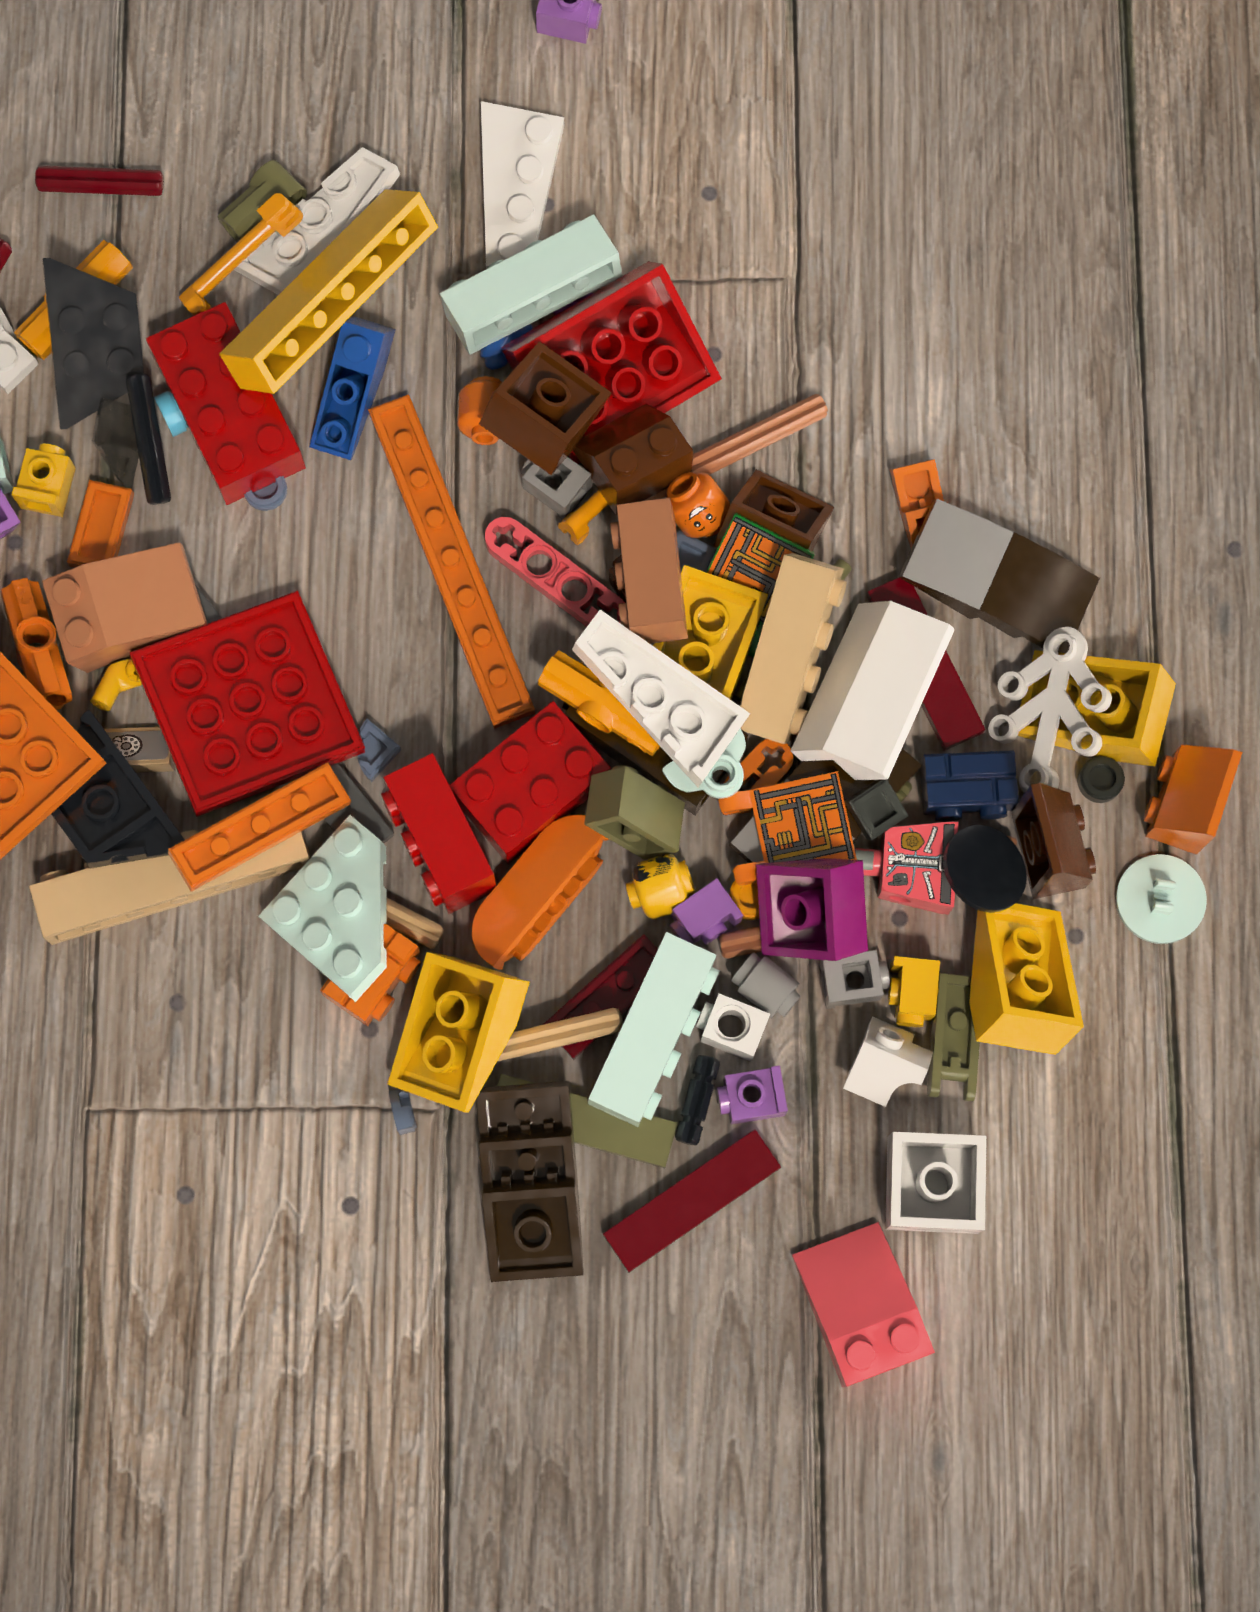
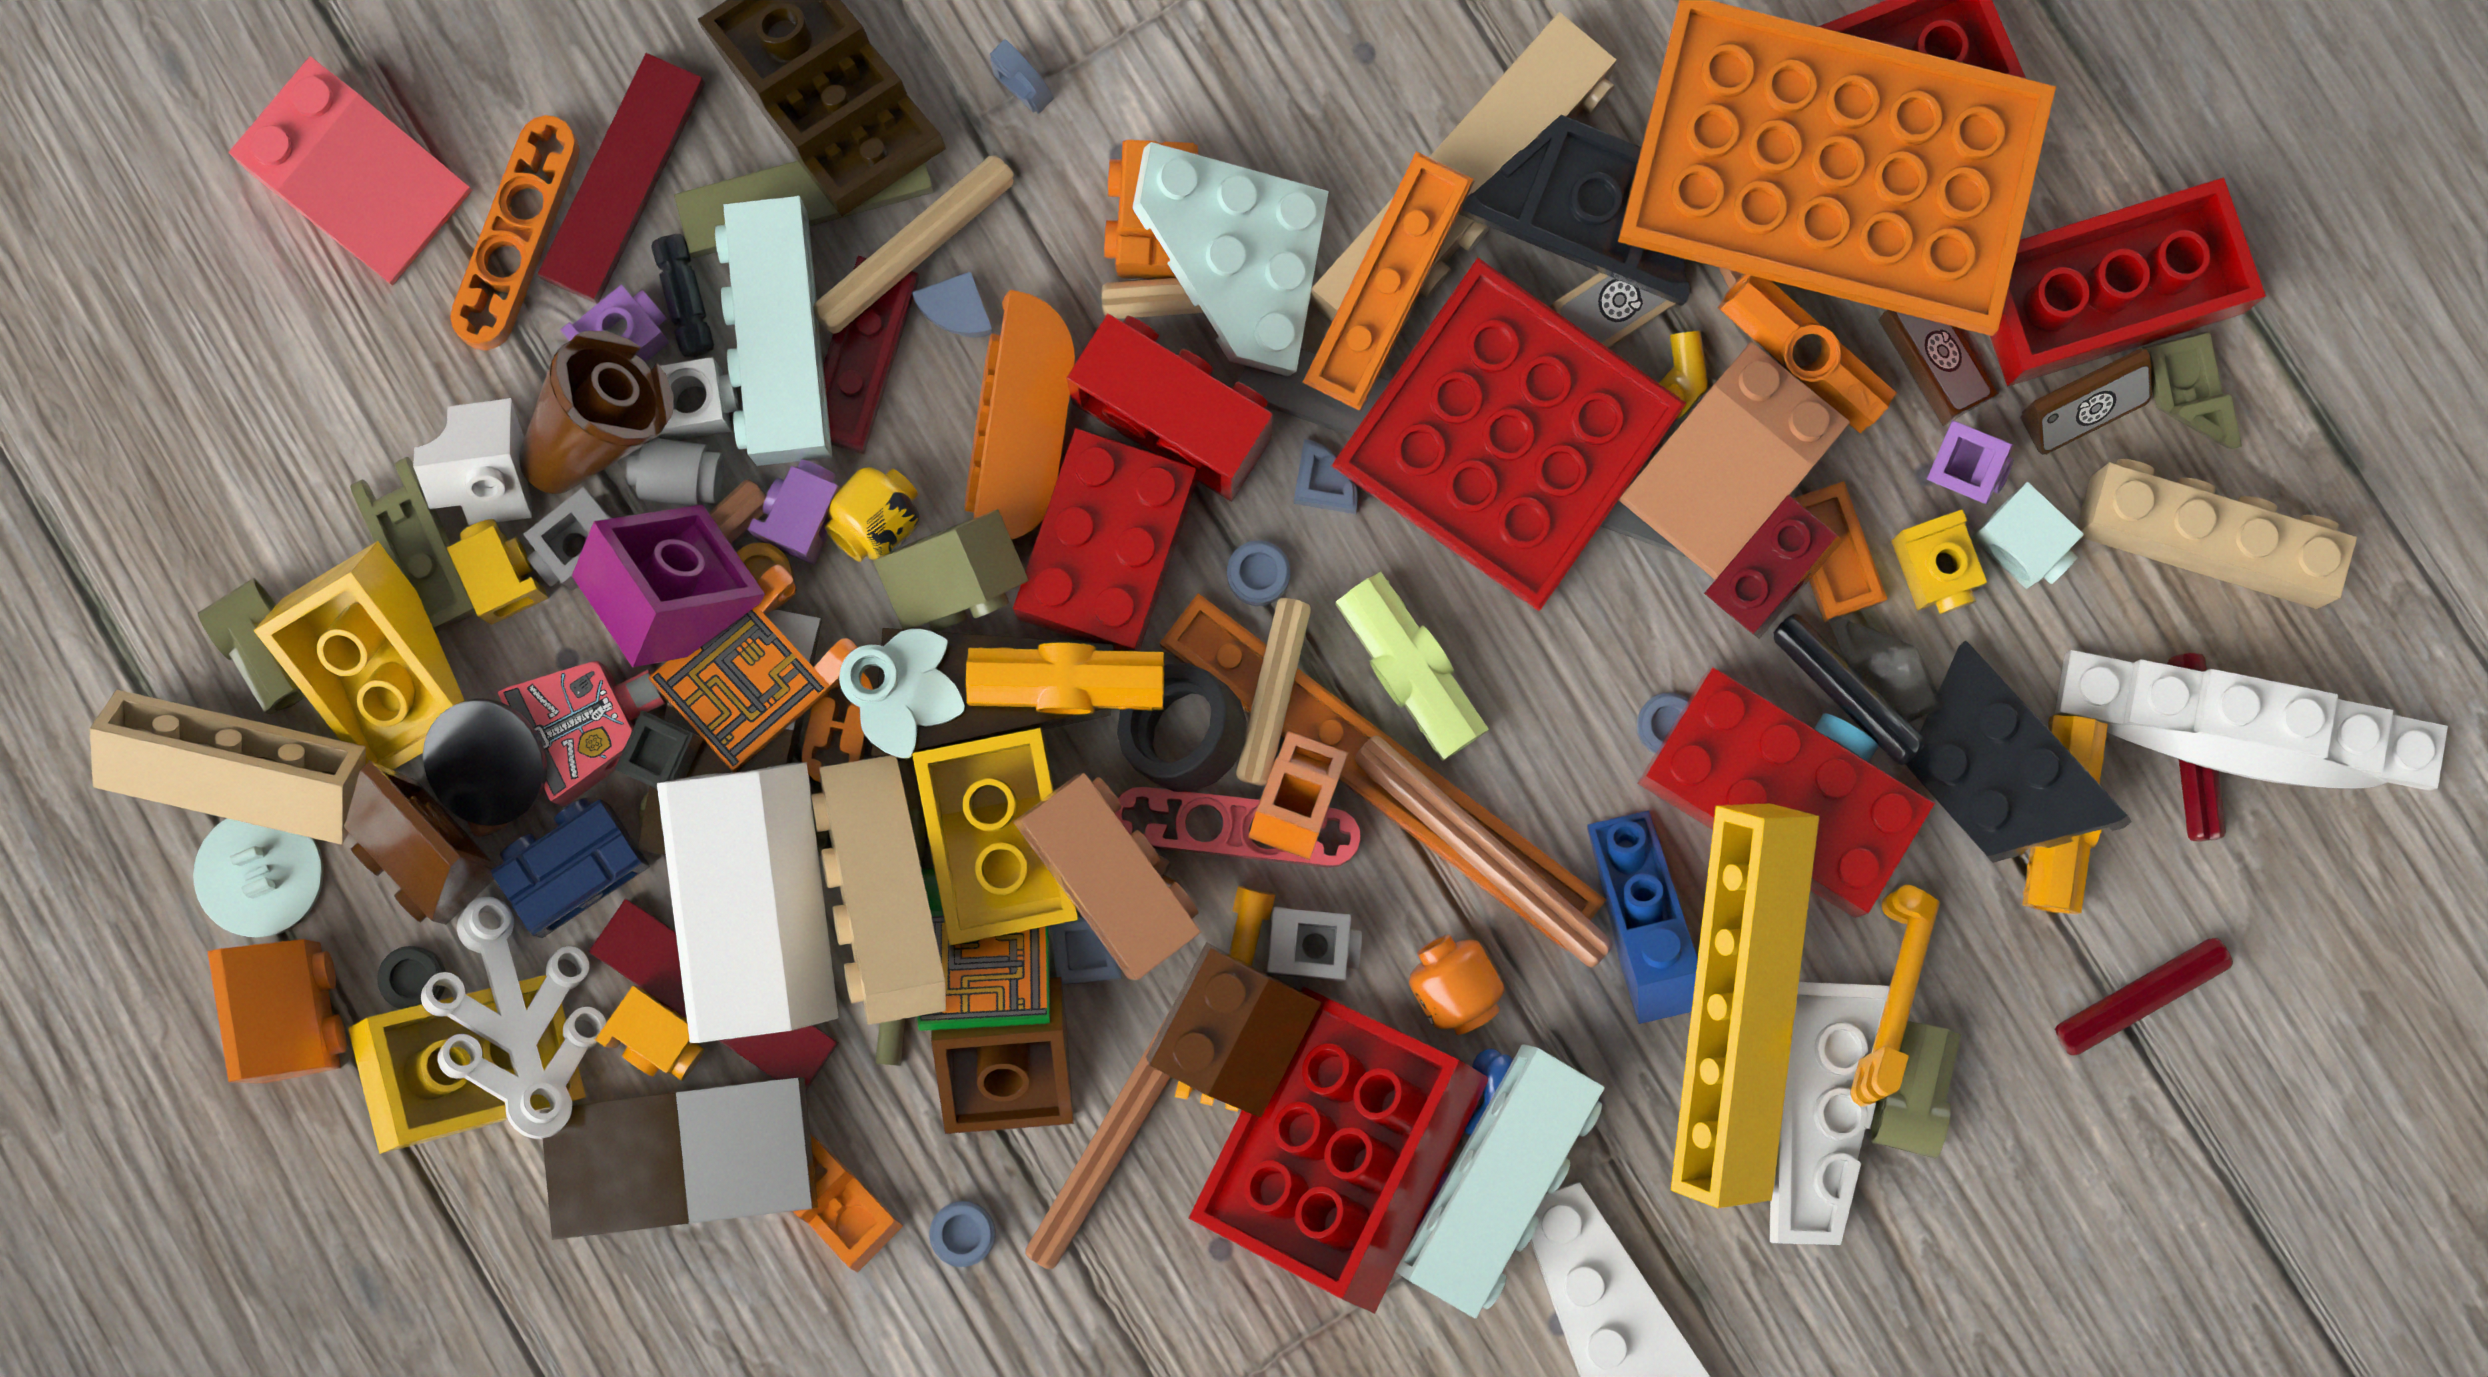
camera: 150 degrees right, 5 degrees up
(144, 526) = (1773, 566): none -> dark red brick
(394, 605) = (1411, 666): none -> yellowish green piece
(422, 473) = (1483, 851): none -> nougat axle
(449, 718) = (1258, 573): none -> sand blue tile
(456, 1030) = (1008, 195): yellow slope -> none
(485, 635) = (1273, 691): none -> tan axle
(513, 554) = (1297, 795): none -> orange brick
(527, 623) = (1215, 753): none -> black tyre
(539, 993) = (955, 306): none -> sand blue tile
(544, 408) = (1371, 1010): reddish brown slope -> none
(666, 699) = (982, 714): white wing -> none
(698, 504) = (1112, 1018): orange head -> none
(776, 1200) = (506, 230): none -> orange beam
(795, 1036) = (593, 411): none -> reddish brown cone
(857, 445) = (962, 1234): none -> sand blue tile
(936, 1182) = (338, 353): white brick -> none
(975, 656) = (653, 1035): none -> light orange brick
(1091, 1048) = (231, 626): none -> olive piece
(1144, 963) = (225, 765): none -> tan brick

